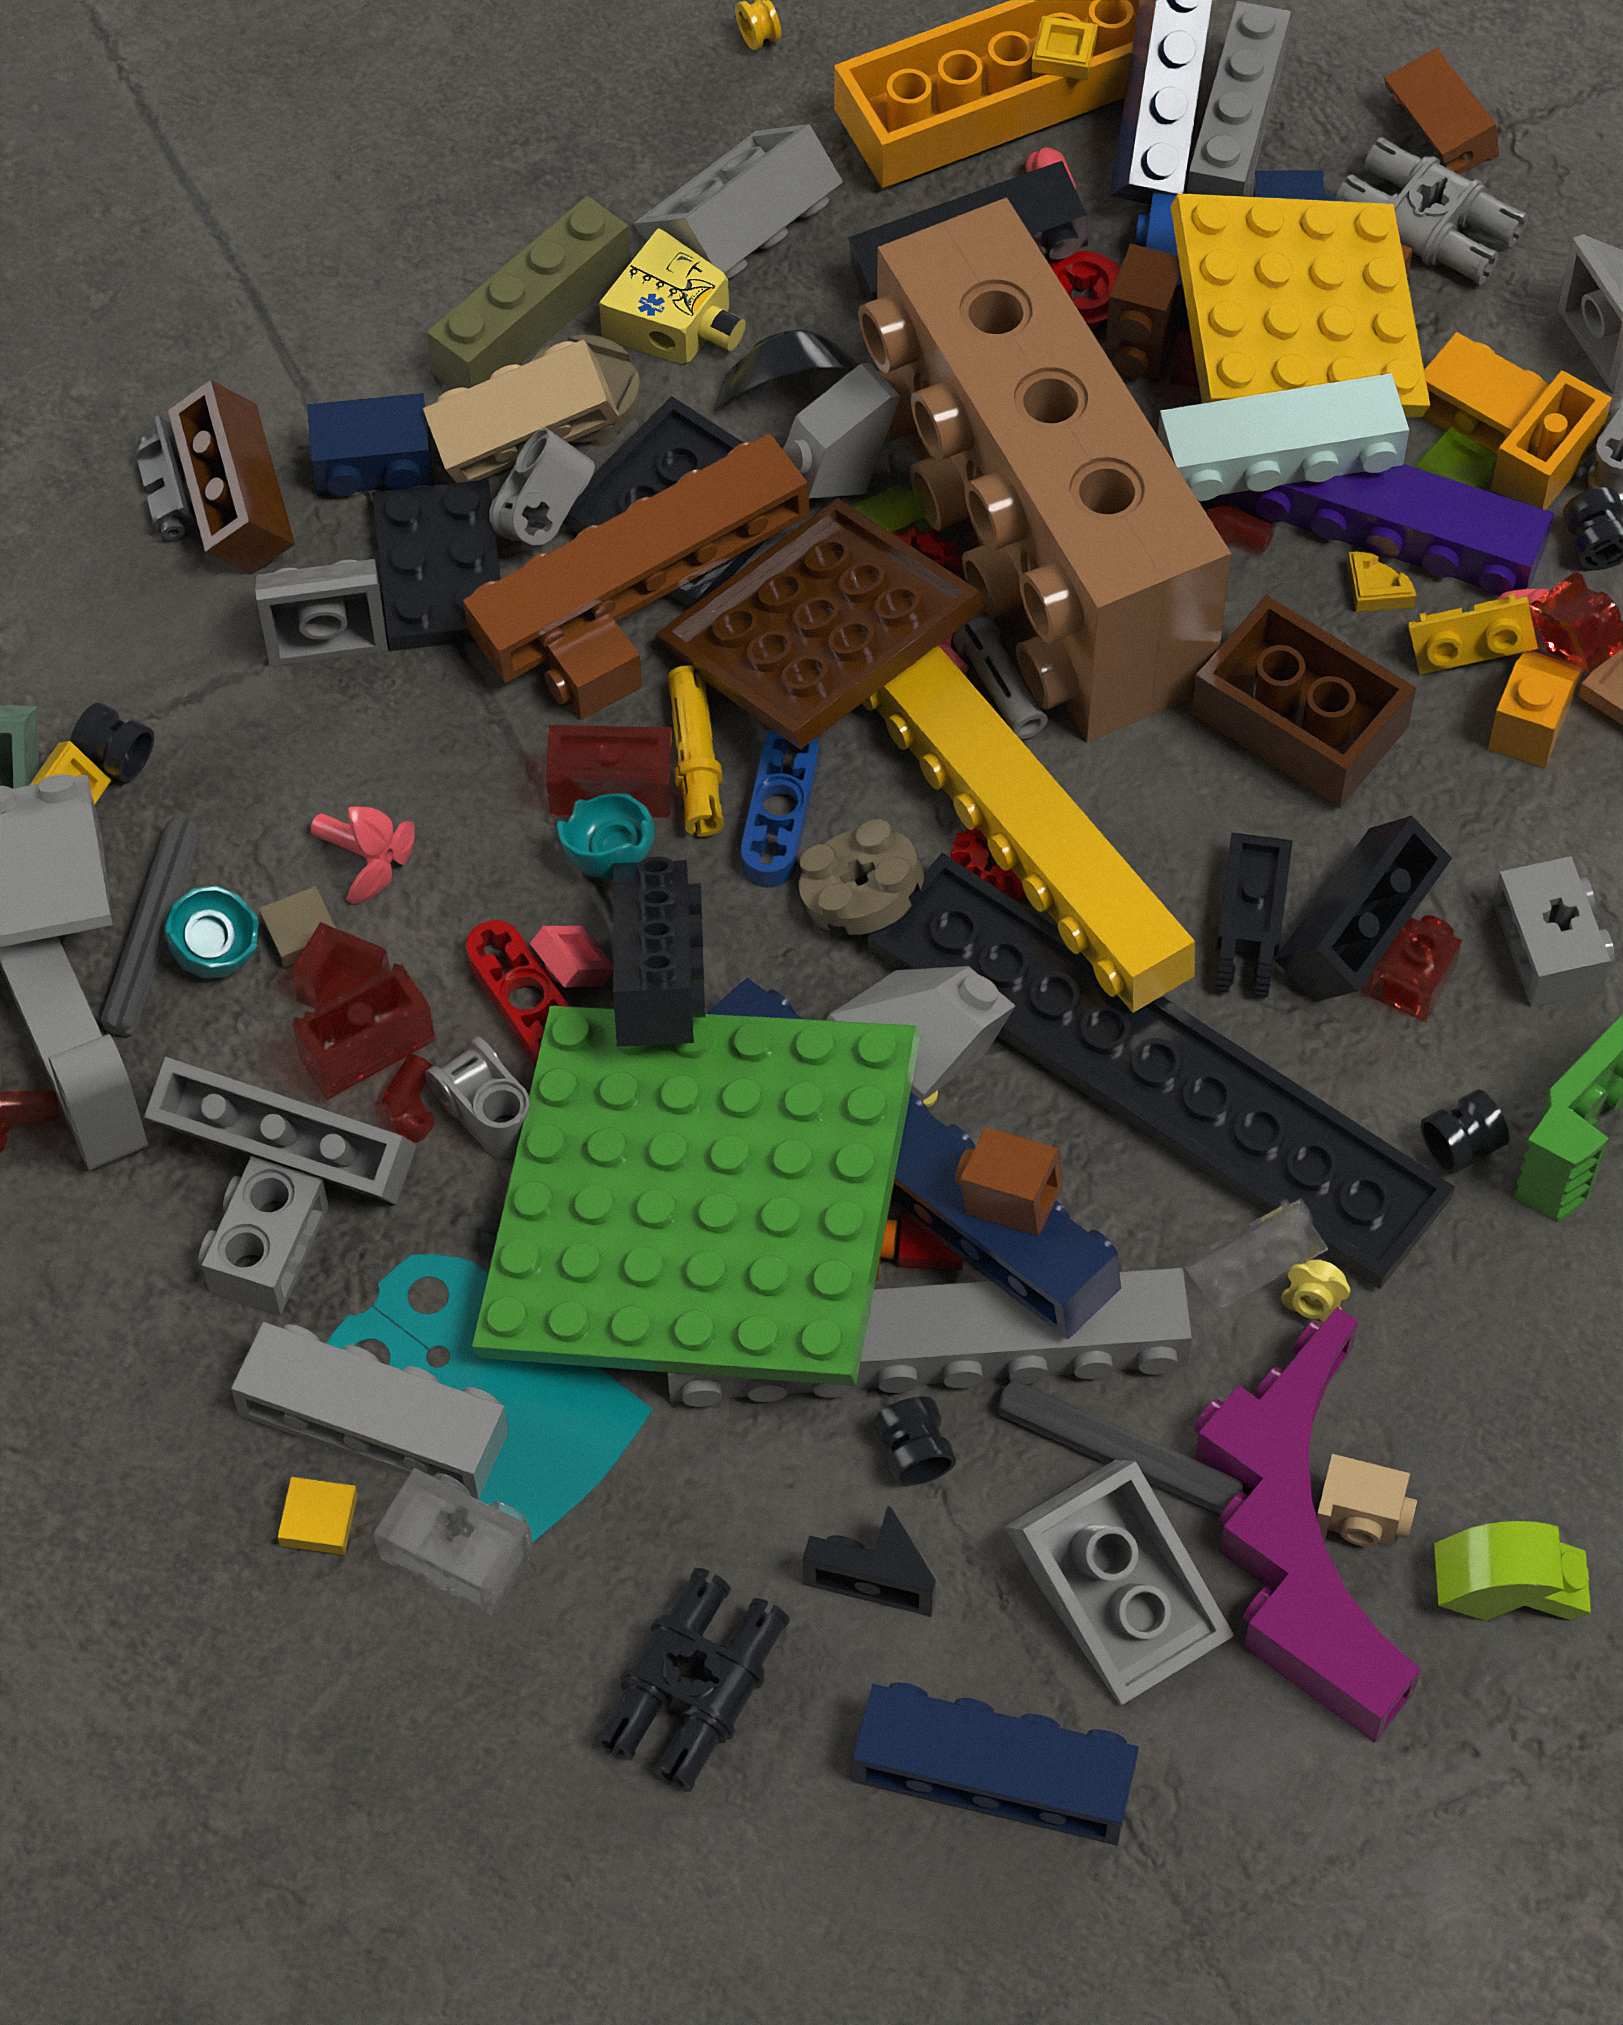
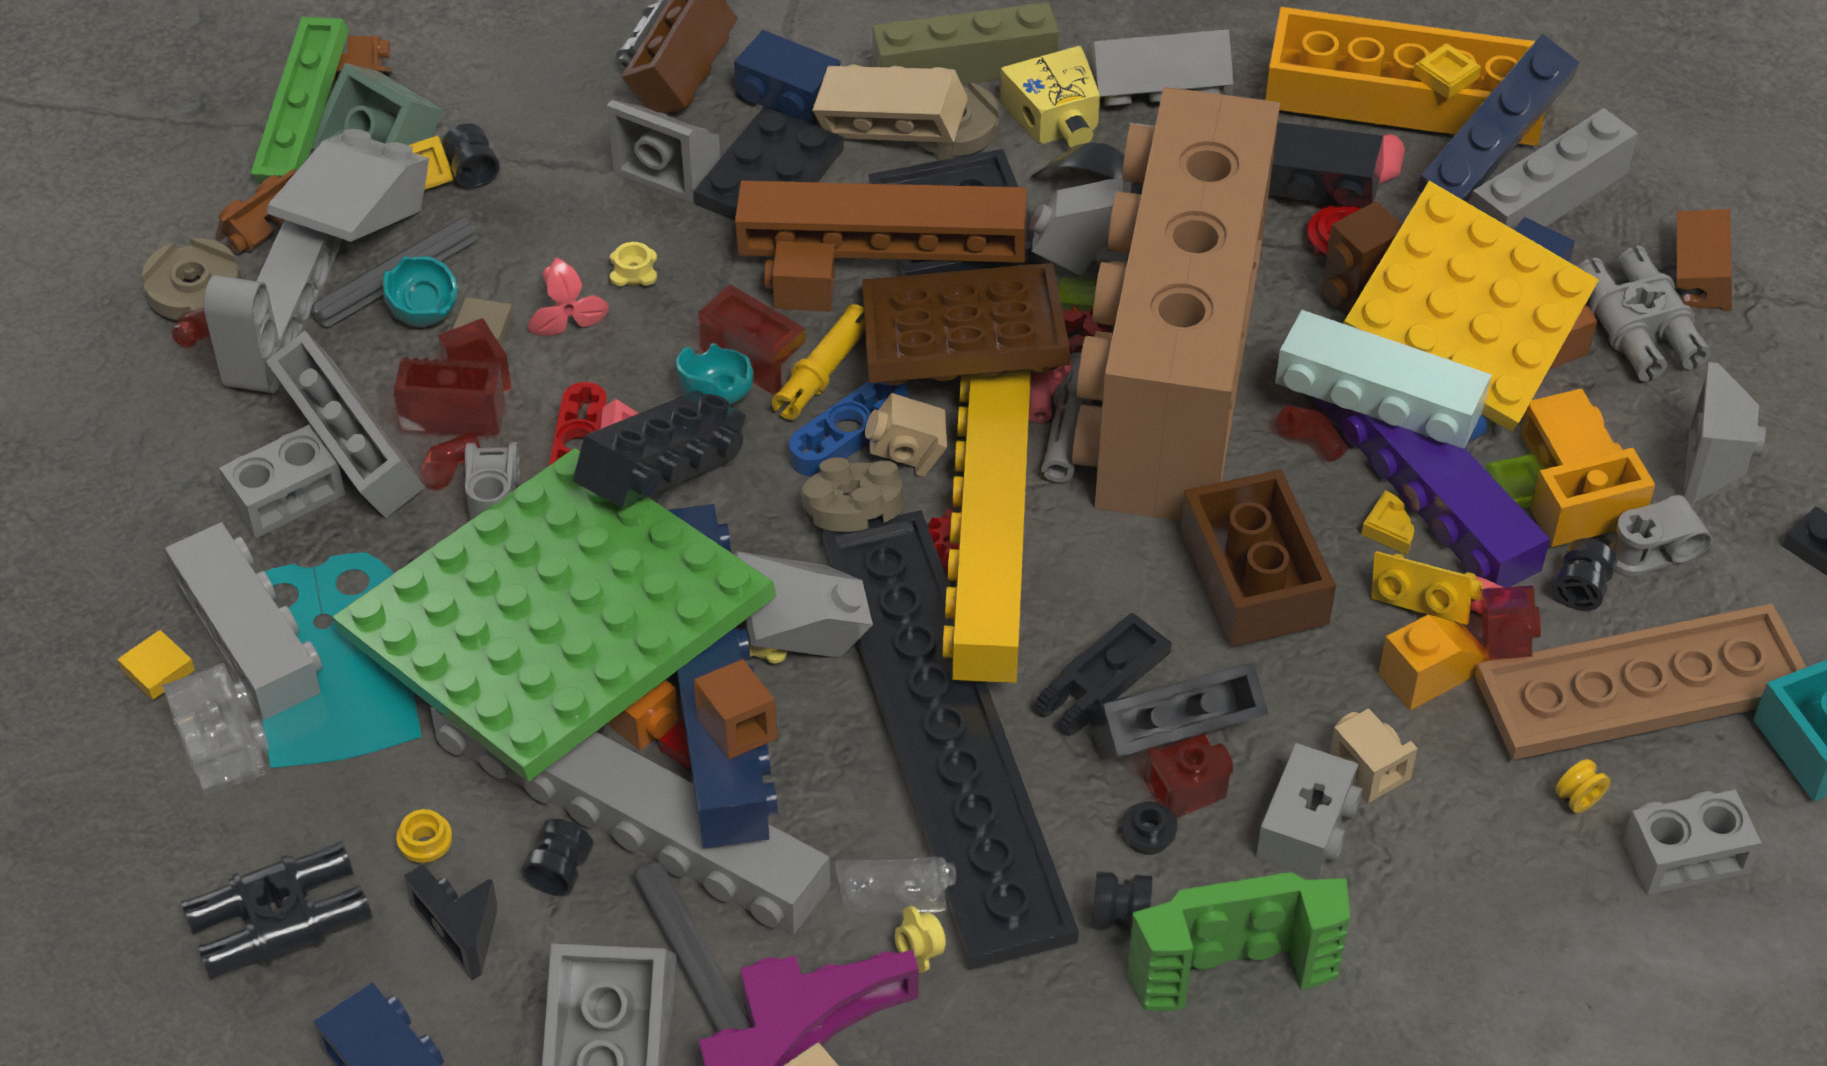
camera: 35 degrees right, 10 degrees down
(399, 748) = (633, 265): none -> light yellow plate
(541, 485) = (869, 146): light grey piece -> none
(761, 1491) = (424, 824): none -> yellow plate
(861, 777) = (908, 432): none -> tan brick
(1417, 1055) = (1149, 839): none -> black plate
(1557, 830) = (1376, 749): none -> tan brick

